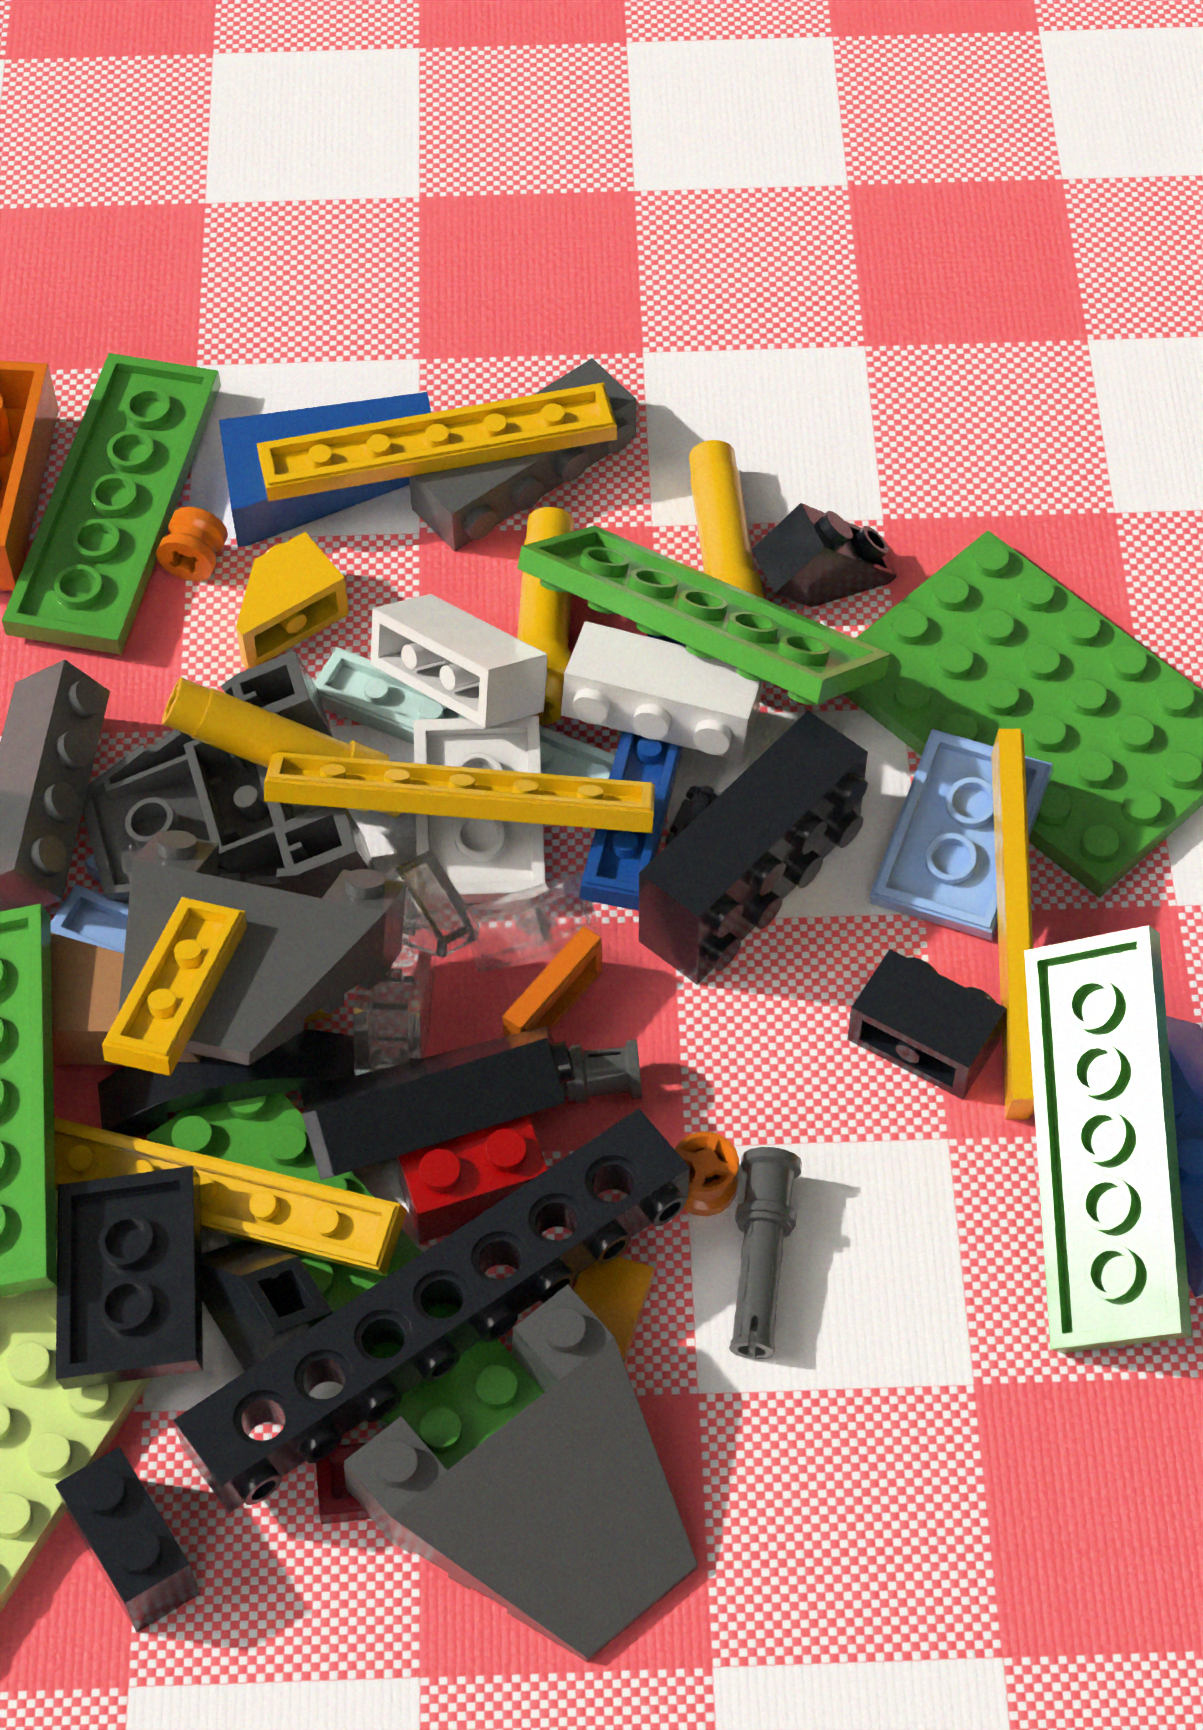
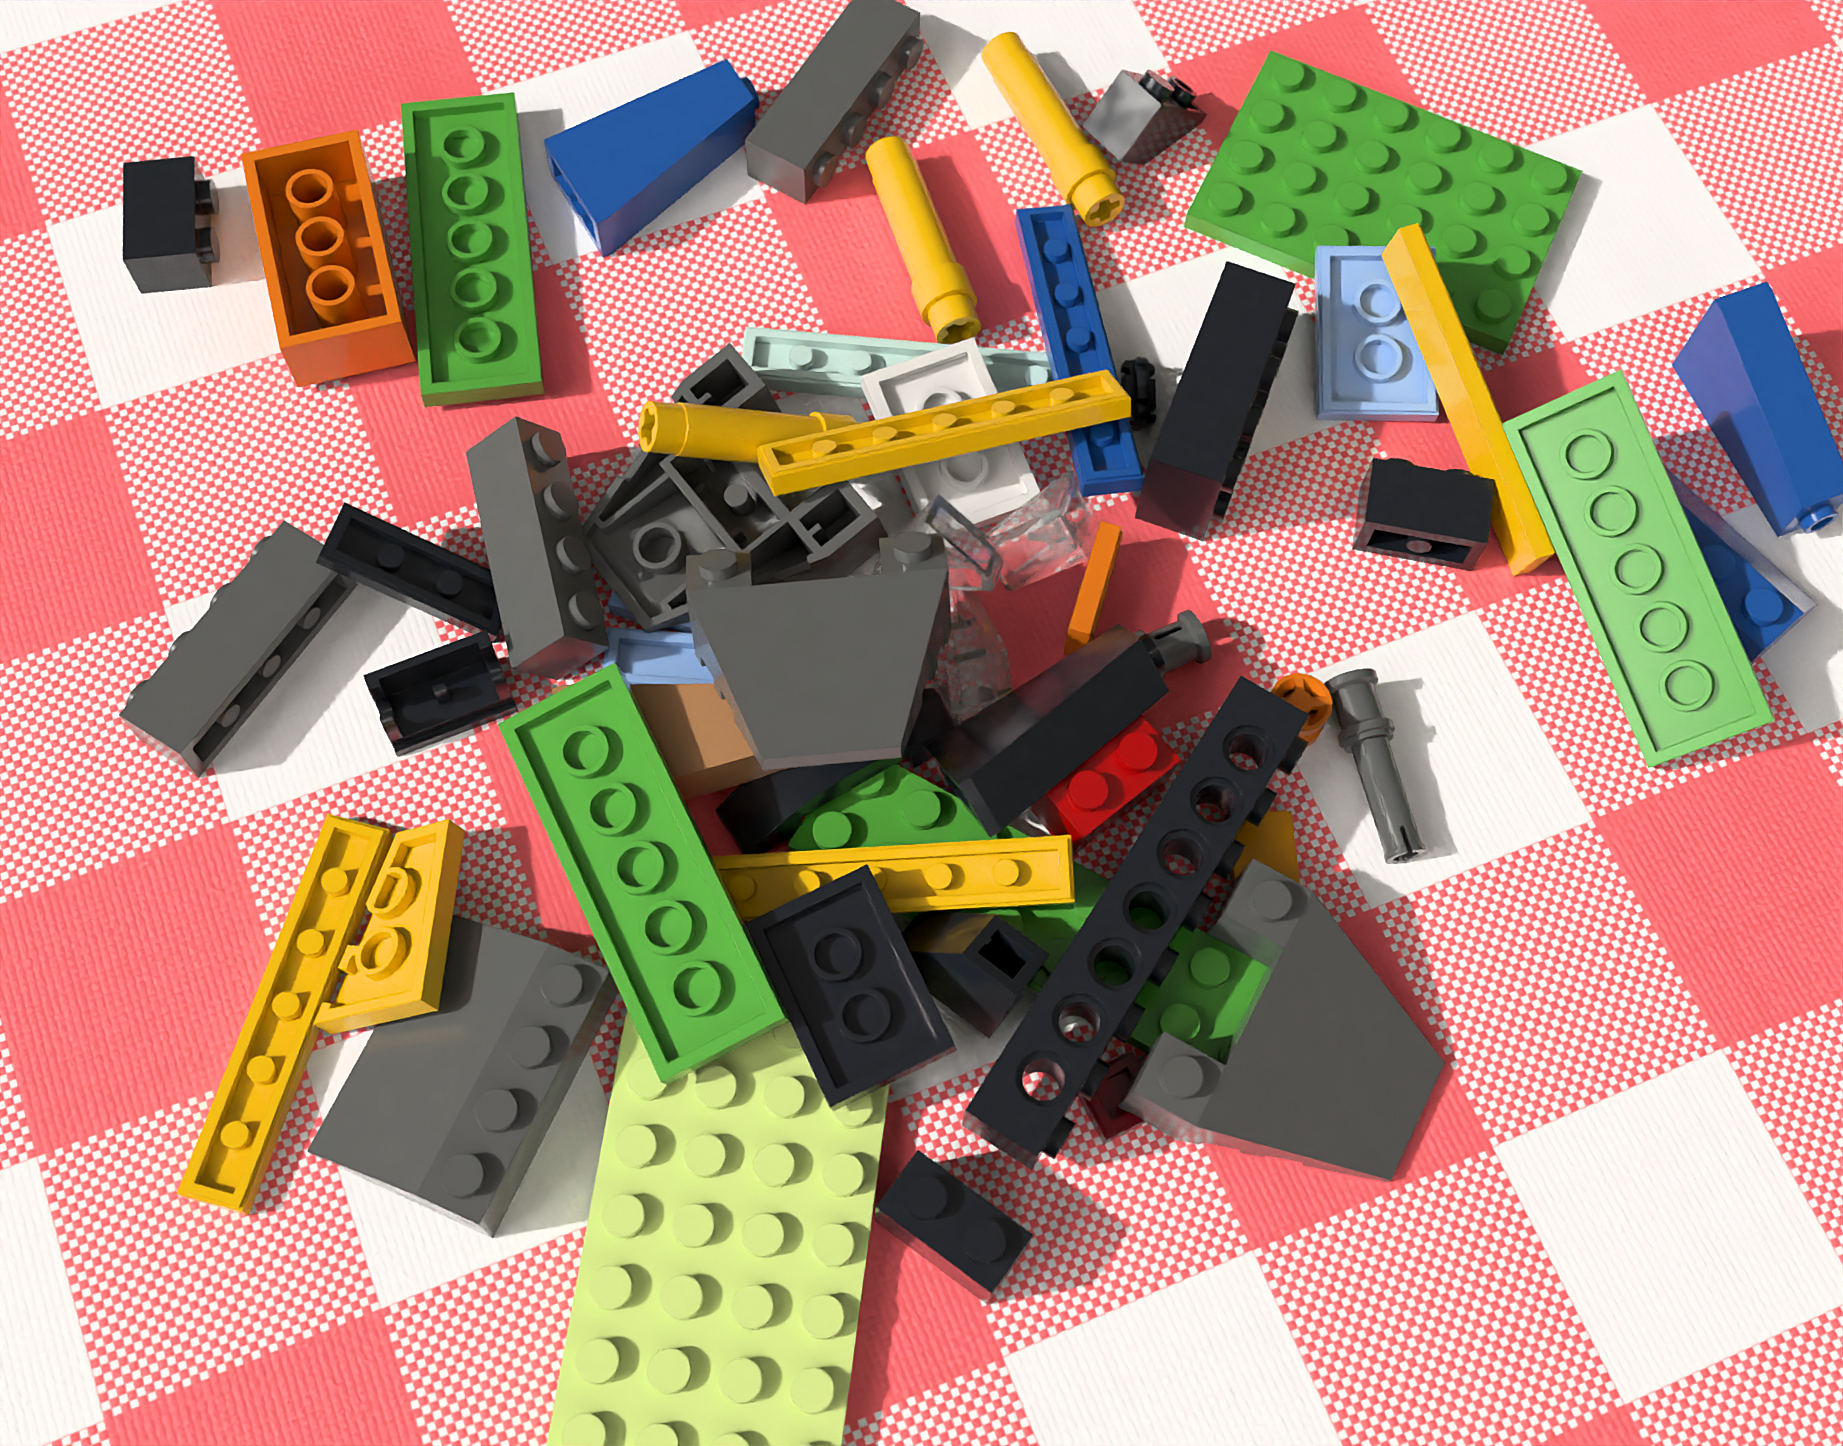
camera: 25 degrees left, 10 degrees up
(174, 986) = (799, 705): yellow tile -> none
(192, 544) = (566, 267): orange wheel -> none
(288, 599) = (684, 291): yellow slope -> none
(436, 441) = (758, 104): yellow tile -> none
(458, 660) = (878, 306): white brick -> none
(659, 692) = (1075, 280): white brick -> none
(704, 614) = (1084, 197): bright green plate -> none

